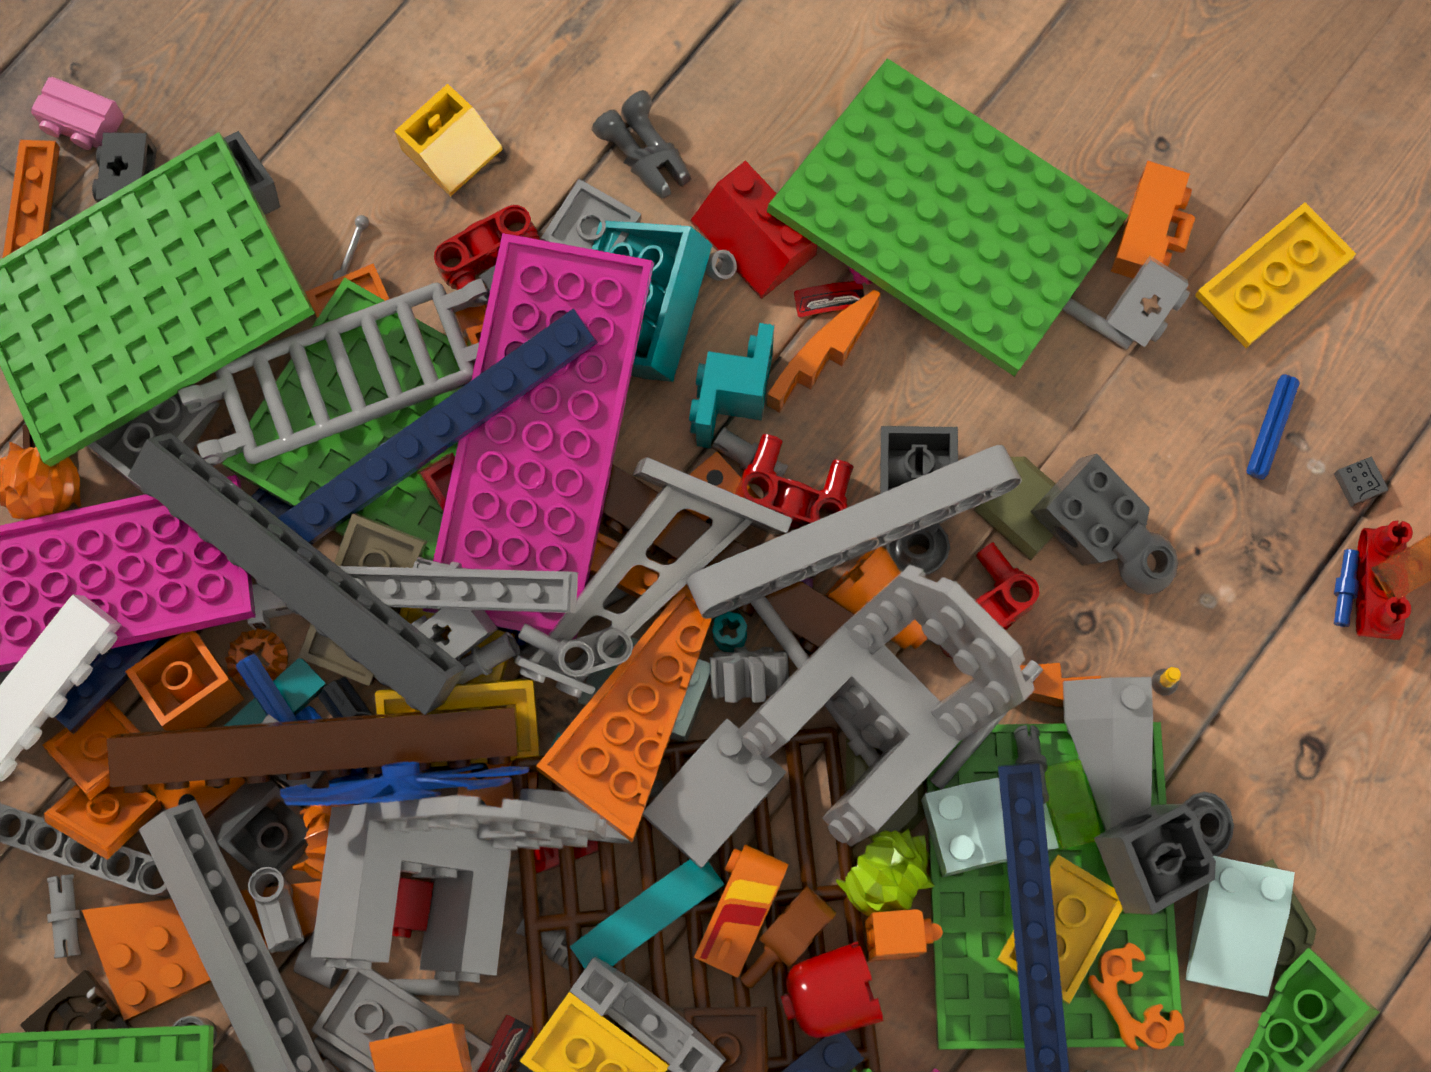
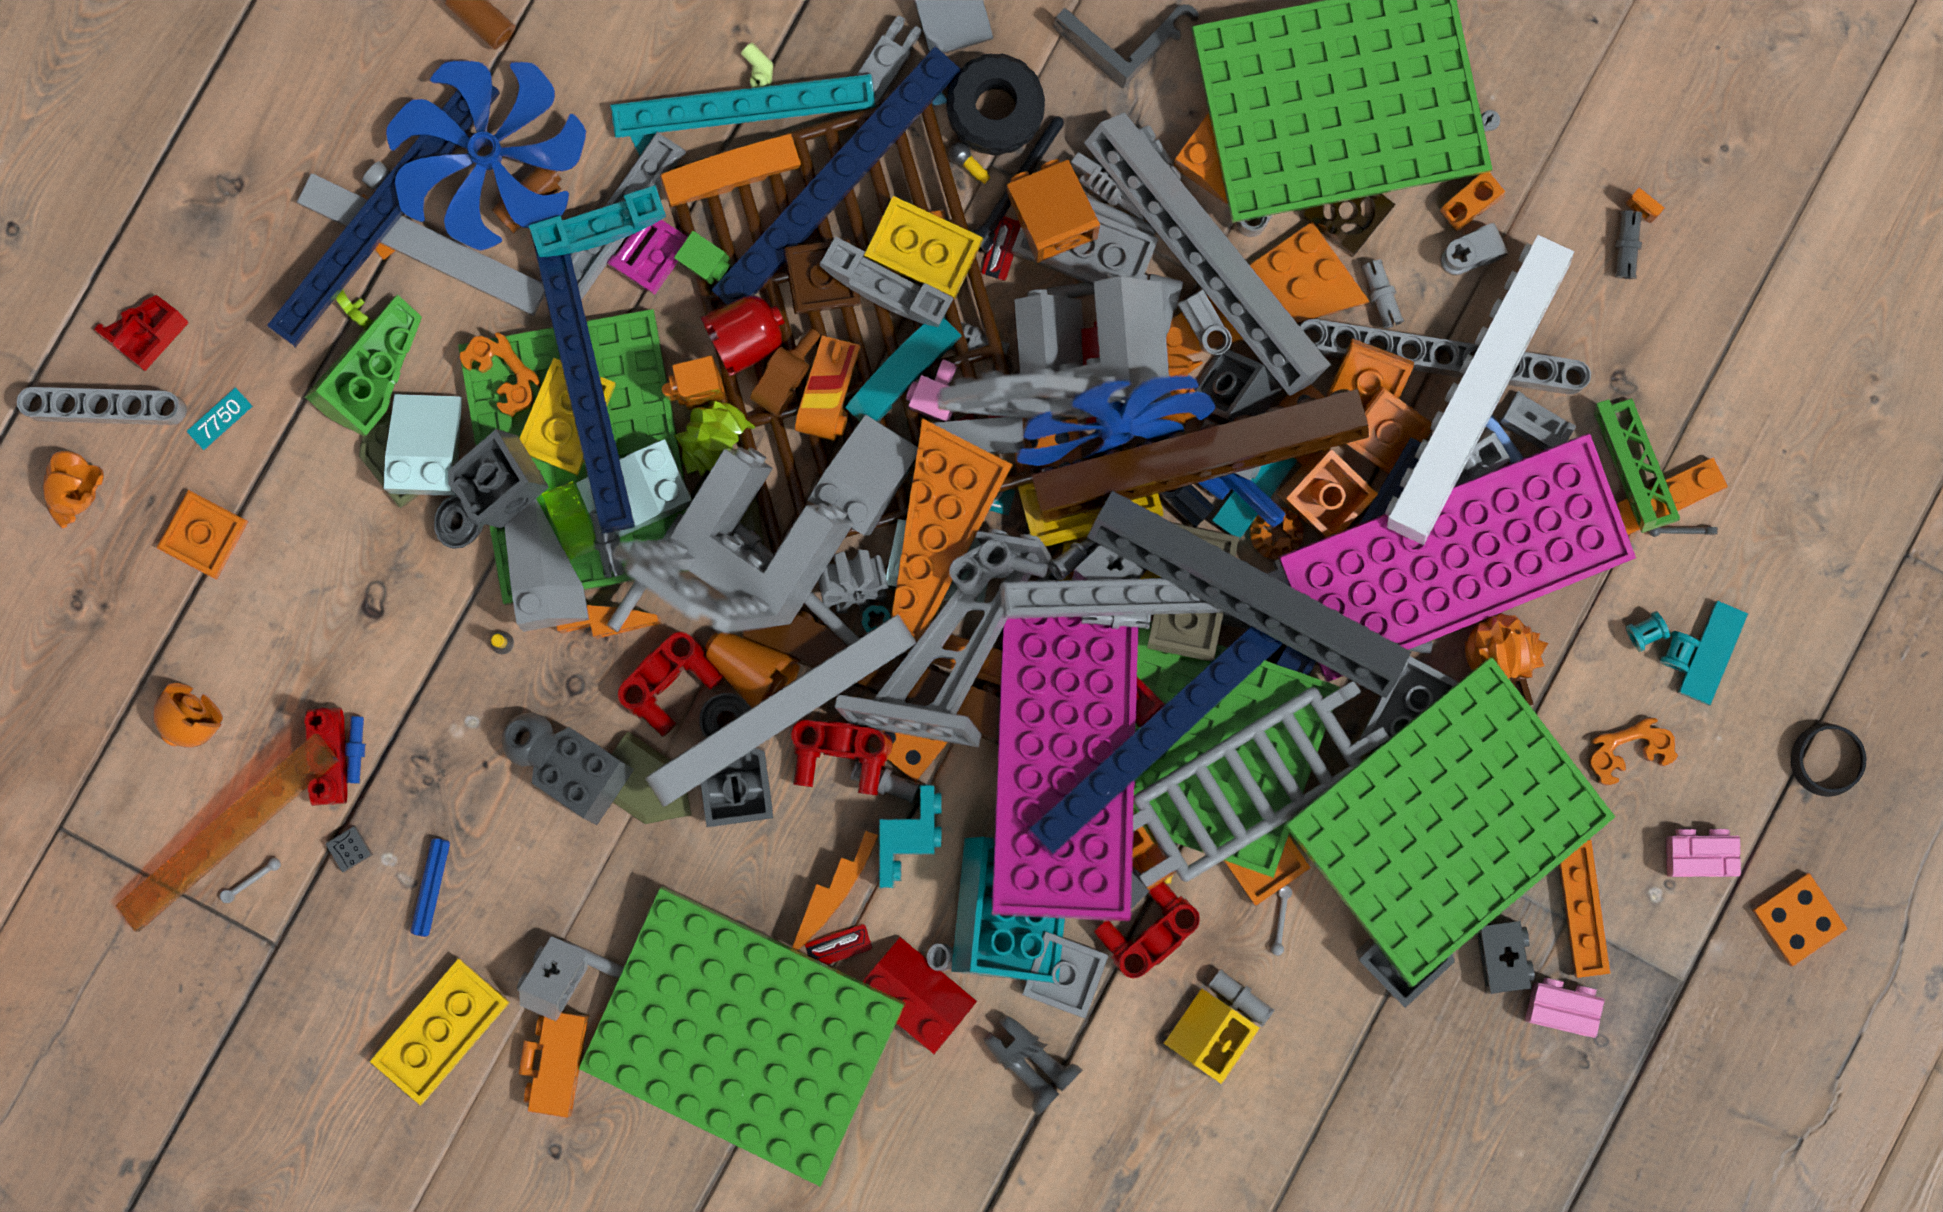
camera: 170 degrees right, 10 degrees up
(410, 177) = (1241, 998): none -> light grey pin
(615, 873) = (924, 393): none -> bright pink brick

